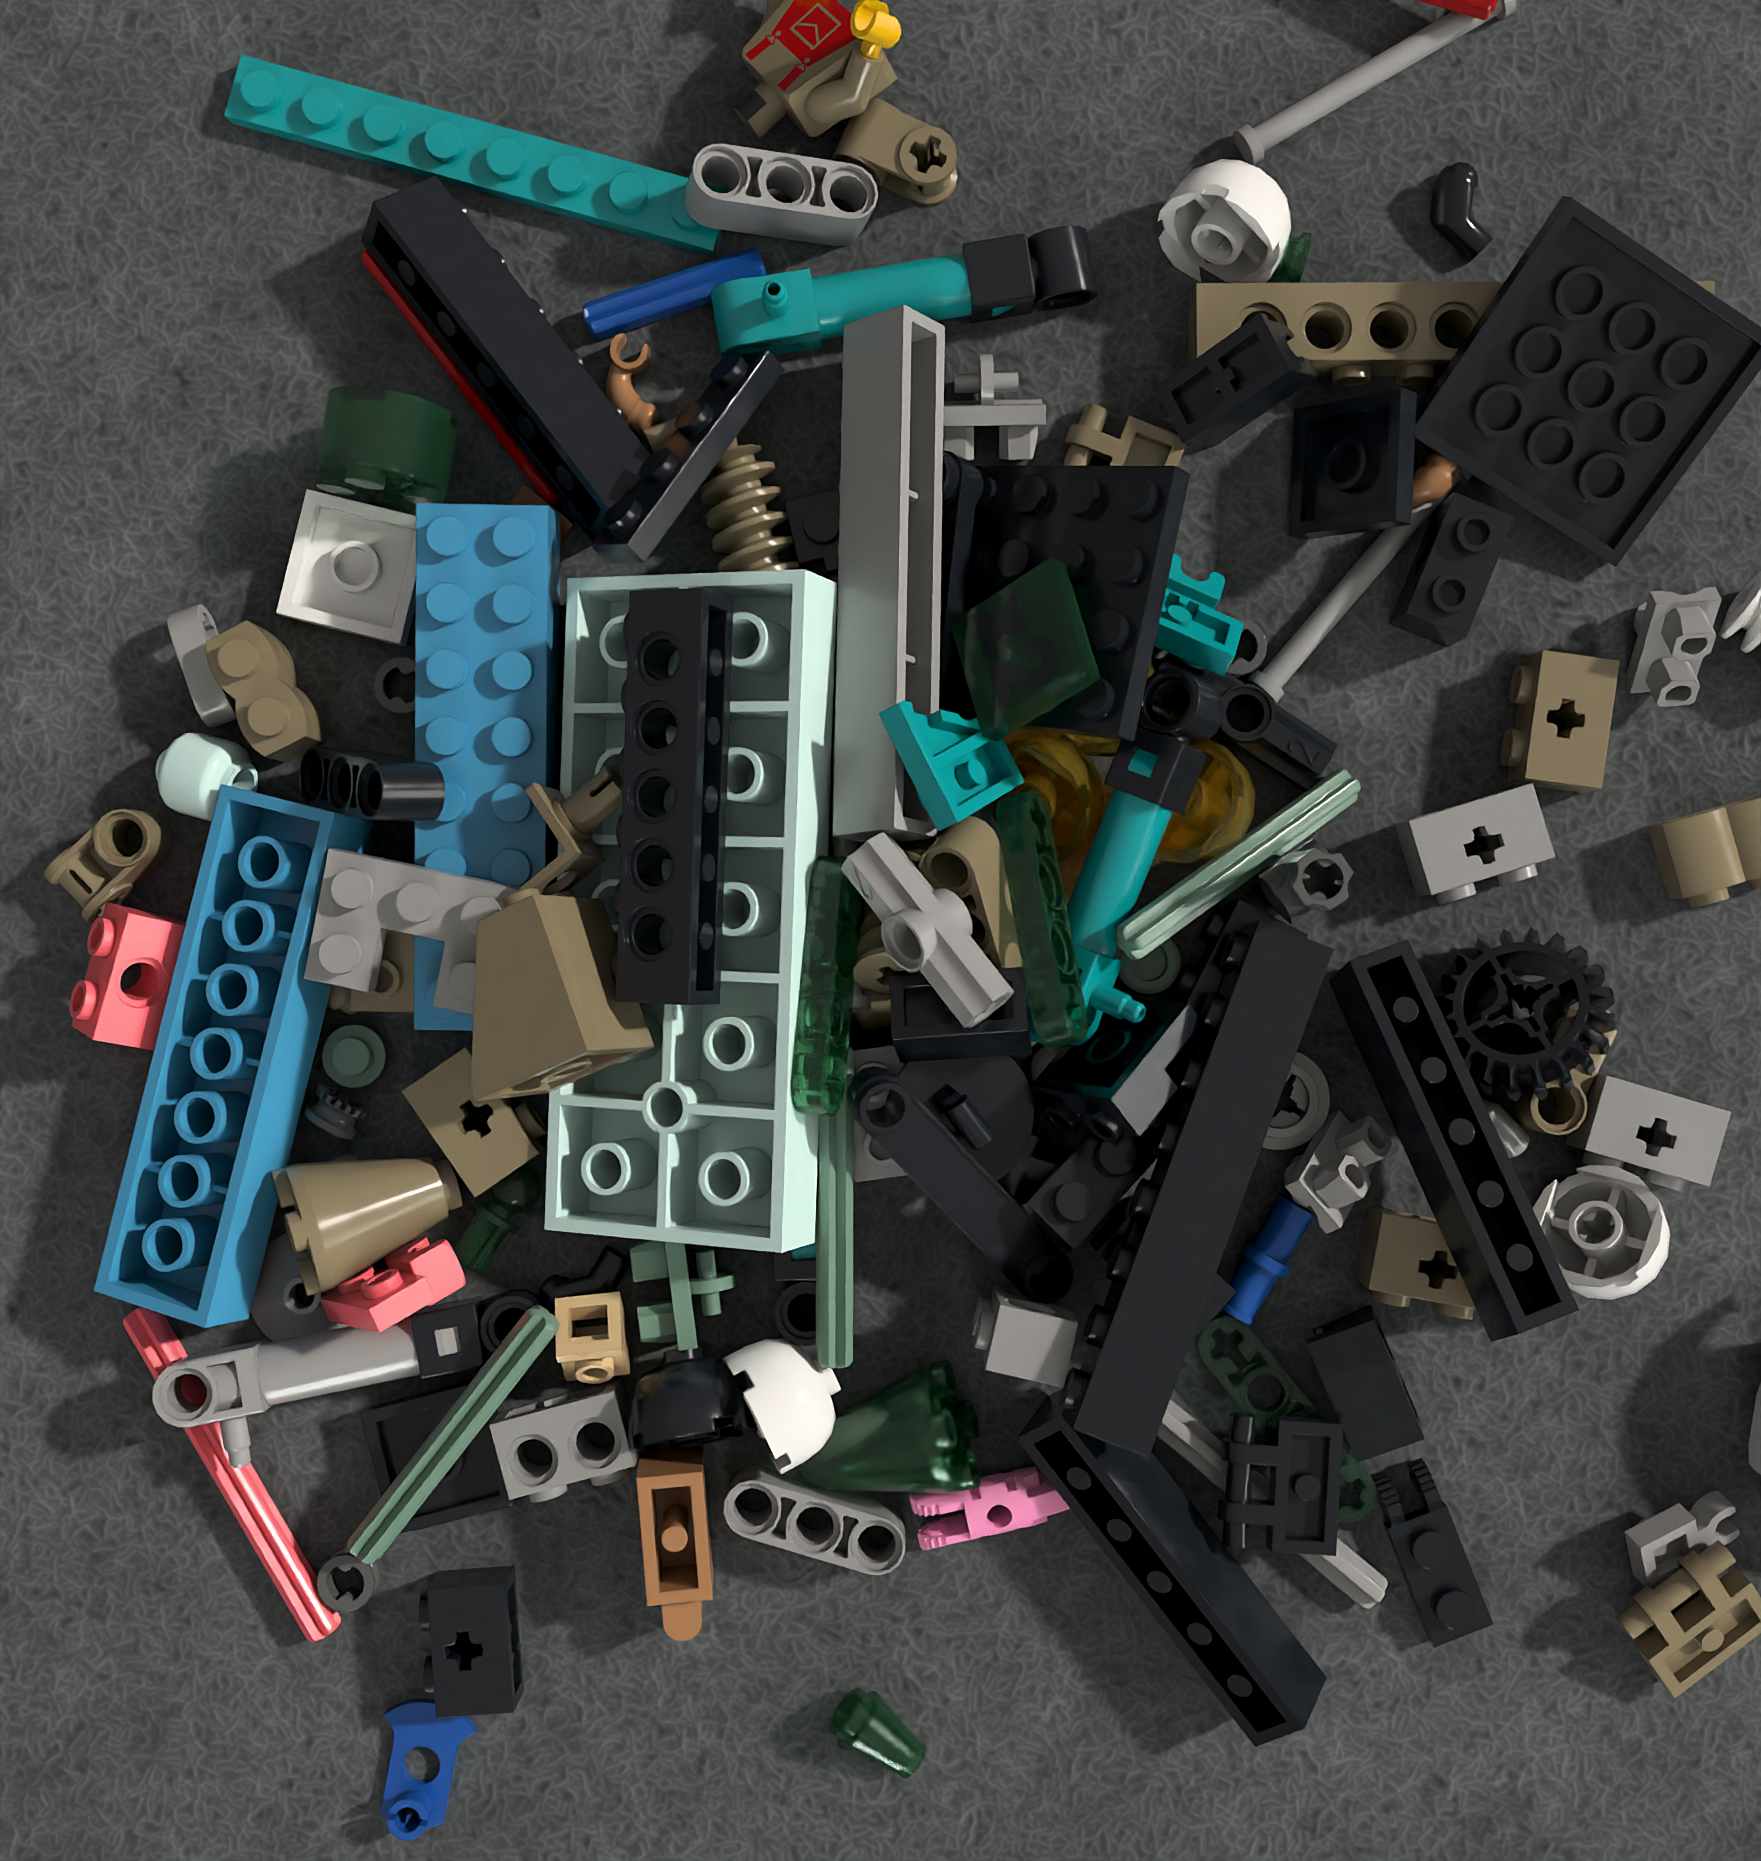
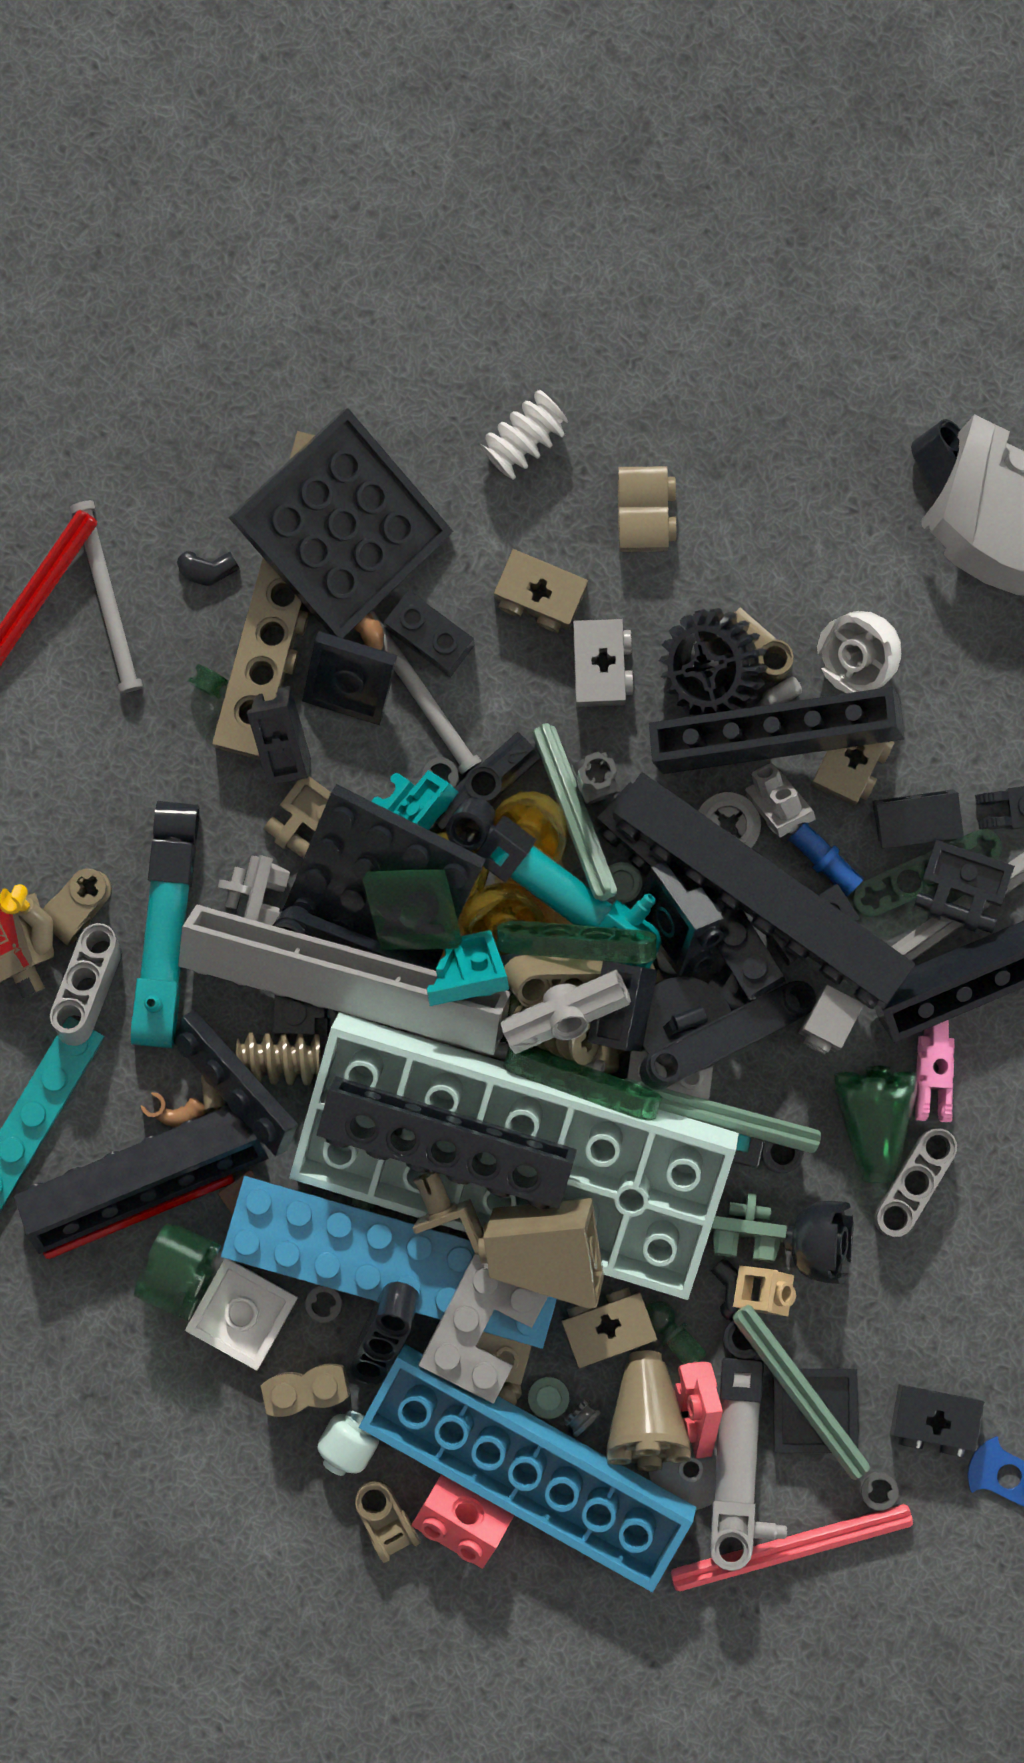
camera: 70 degrees left, 5 degrees down
(189, 633) = (270, 1426): light grey beam -> none
(560, 1426) = (814, 1326): light grey brick -> none
(667, 294) = (123, 1068): blue axle -> none
(675, 1537) = (902, 1271): medium nougat brick -> none
(787, 1398) = (833, 1177): white cylinder -> none
(1229, 218) = (177, 712): white cylinder -> none
(1671, 644) = (512, 512): light grey hips -> none
(1684, 1138) = (813, 581): light grey brick -> none

